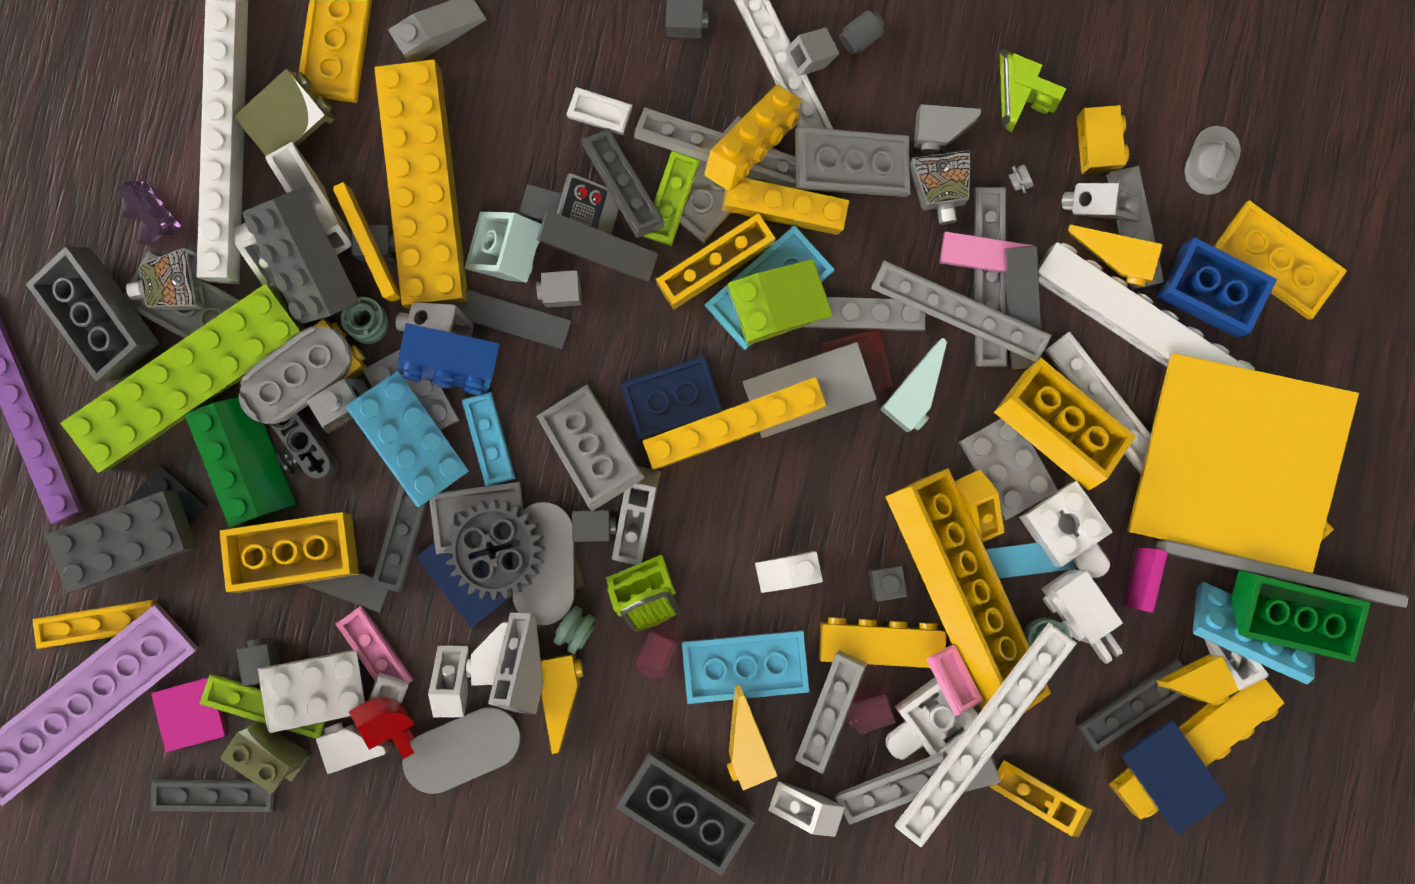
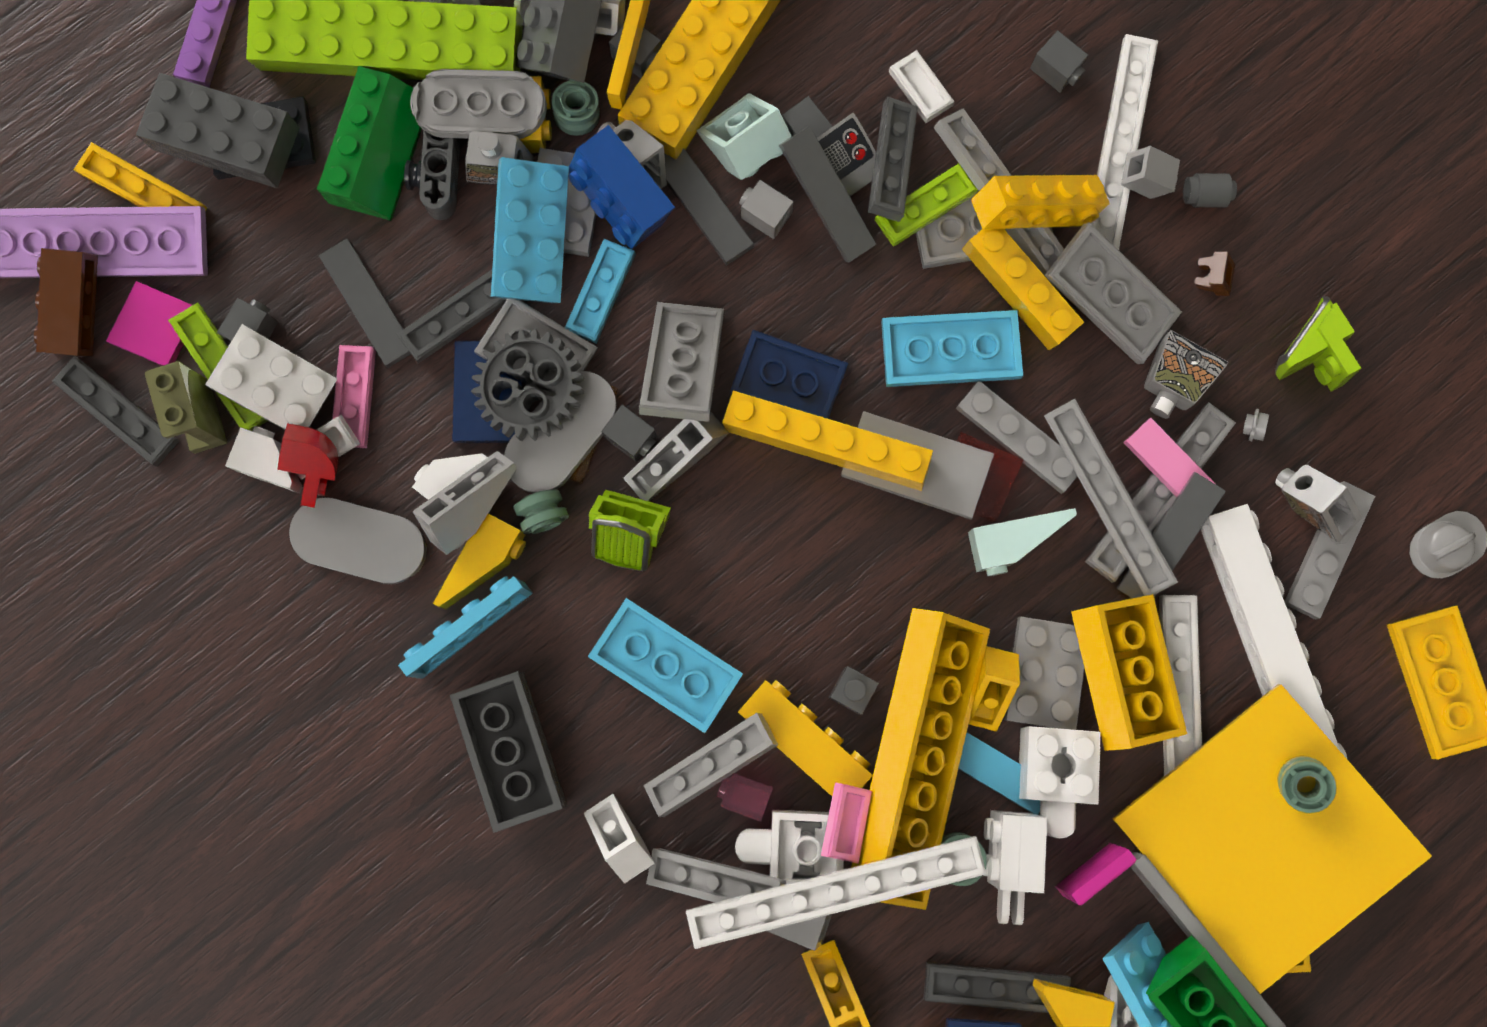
camera: 35 degrees right, 5 degrees down
(115, 749) = (66, 302): none -> reddish brown brick
(289, 552) = (350, 250): yellow brick -> none
(449, 682) = (393, 472): white slope -> none
(585, 761) = (454, 636): none -> medium azure plate
(656, 655) = (594, 591): clear pink brick -> none
(715, 261) = (922, 287): yellow brick -> none
(747, 749) = (608, 742): yellow slope -> none
(778, 301) = (951, 362): lime slope -> none
(789, 572) = (771, 611): white slope -> none
(916, 88) = (1220, 275): none -> tile
(941, 125) = (1220, 325): light grey slope -> none
(1102, 139) = (1358, 446): yellow brick -> none
(1125, 255) = (1301, 562): yellow slope -> none
(1216, 288) = (1366, 659): blue brick -> none
(1251, 420) = (1314, 800): none -> sand green wheel

